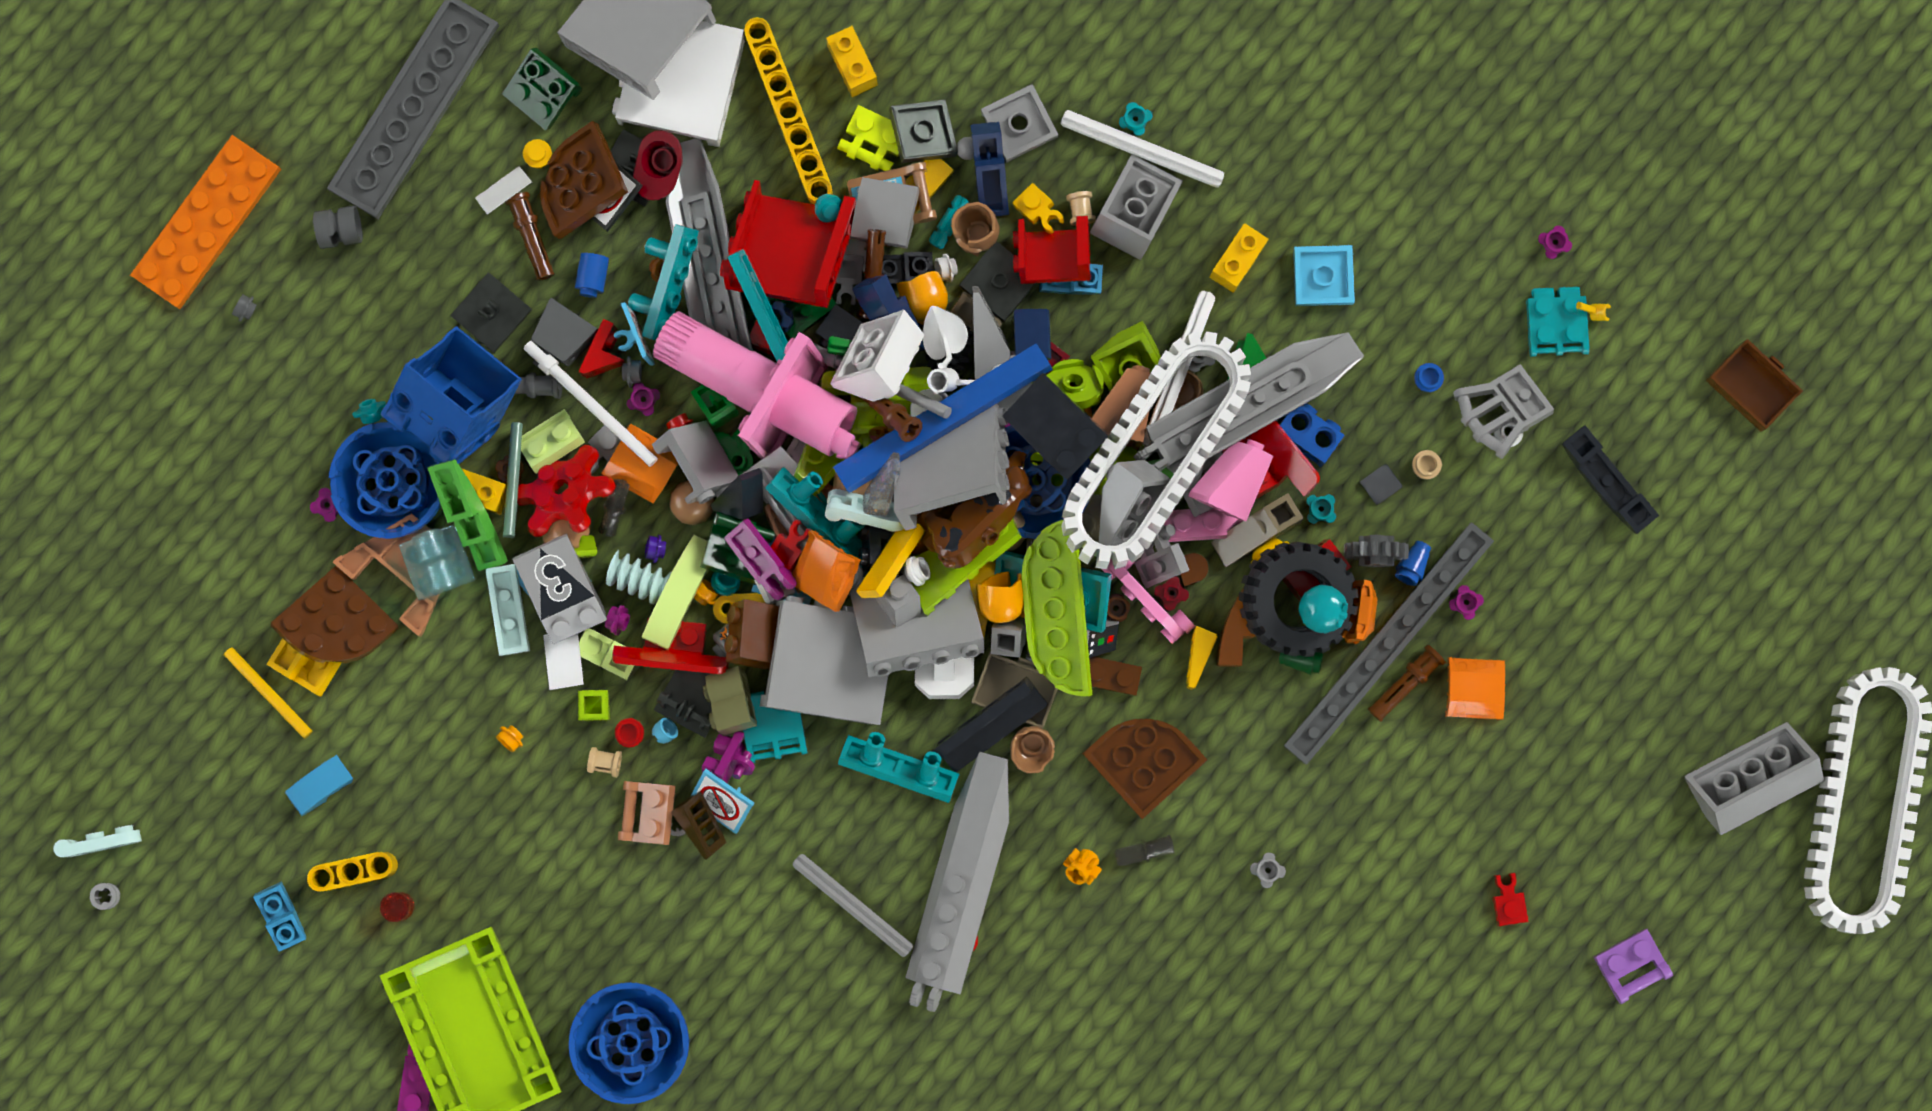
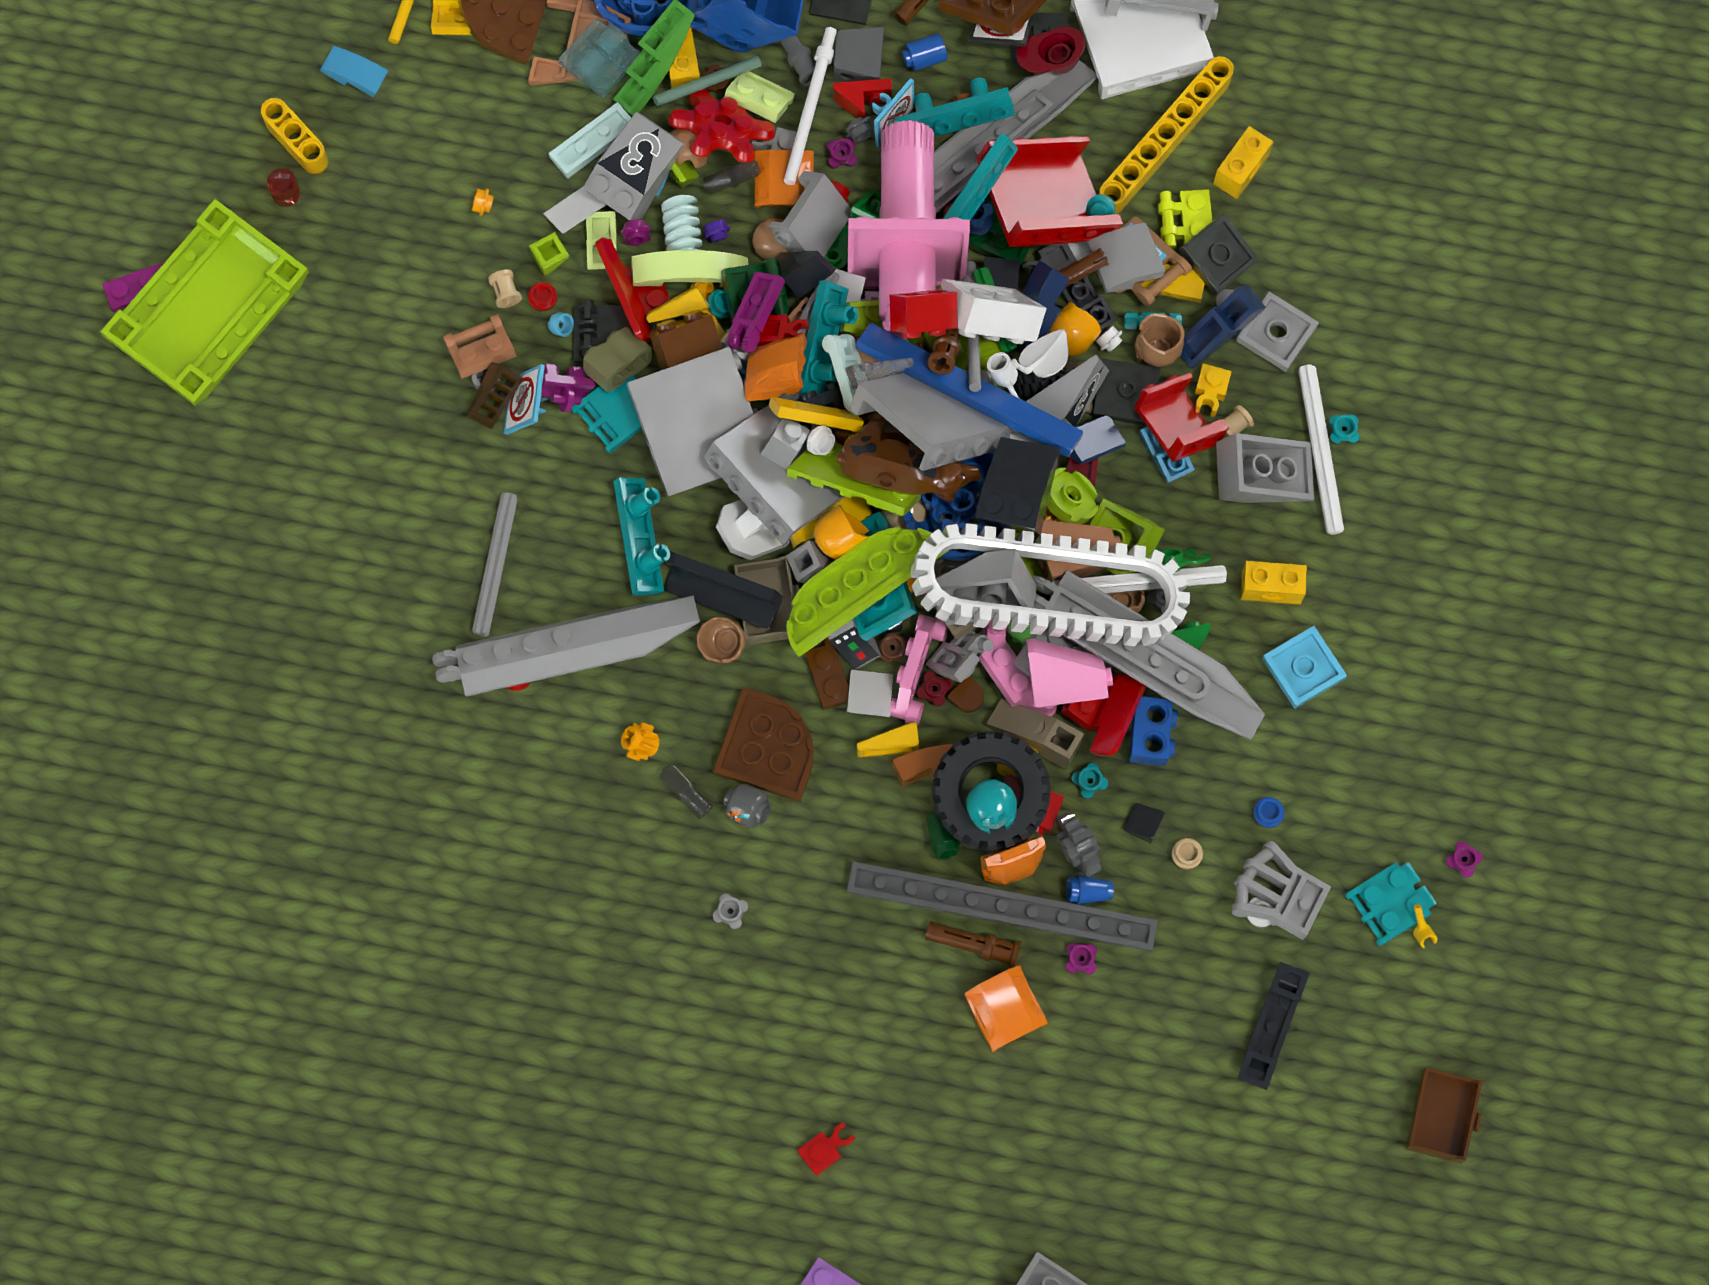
camera: 60 degrees right, 10 degrees down
(280, 916) = (224, 102): dark azure slope -> none
(593, 1045) = (248, 410): blue brick -> none
(711, 620) = (685, 302): none -> yellow slope
(857, 418) = (923, 312): none -> red brick
(1146, 649) = (870, 693): none -> white sticker
(1175, 324) = (1184, 557): none -> green plate
(1187, 806) = (747, 805): none -> dark grey head

